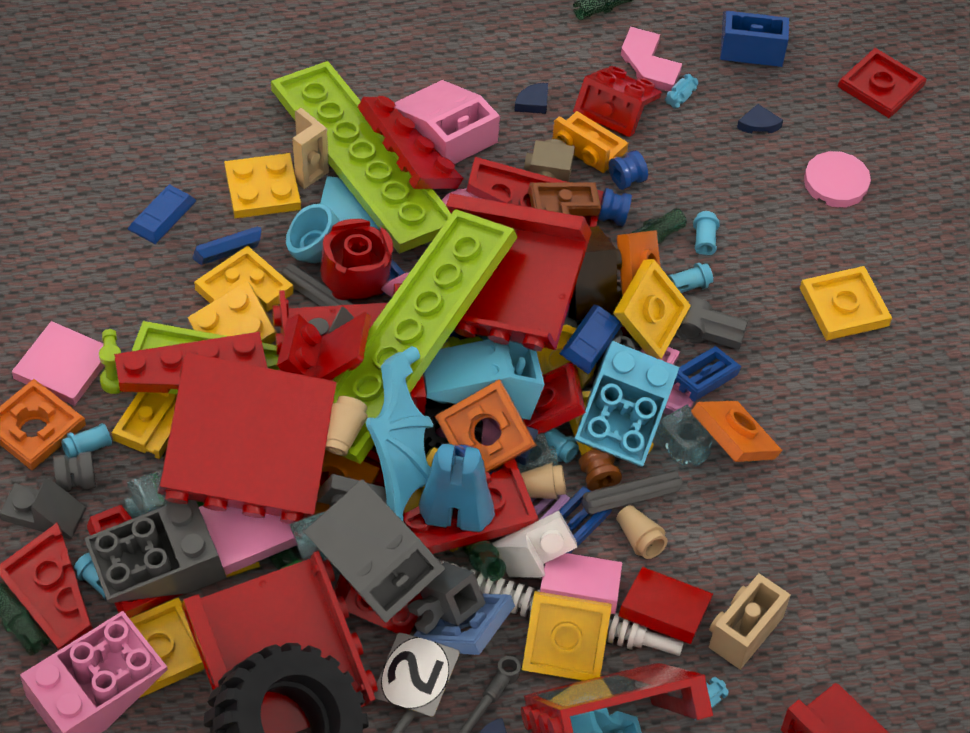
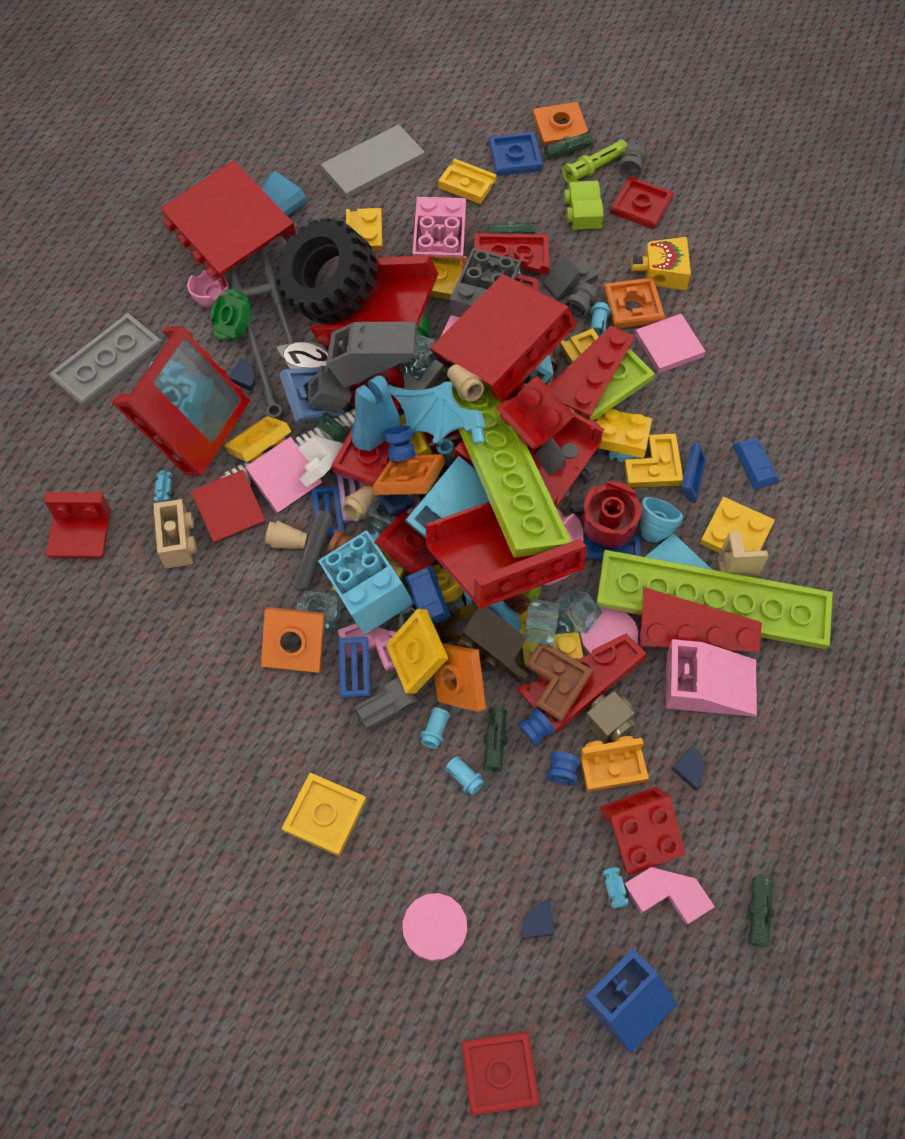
camera: 135 degrees right, 10 degrees up
(109, 377) = (643, 350): lime piece -> none

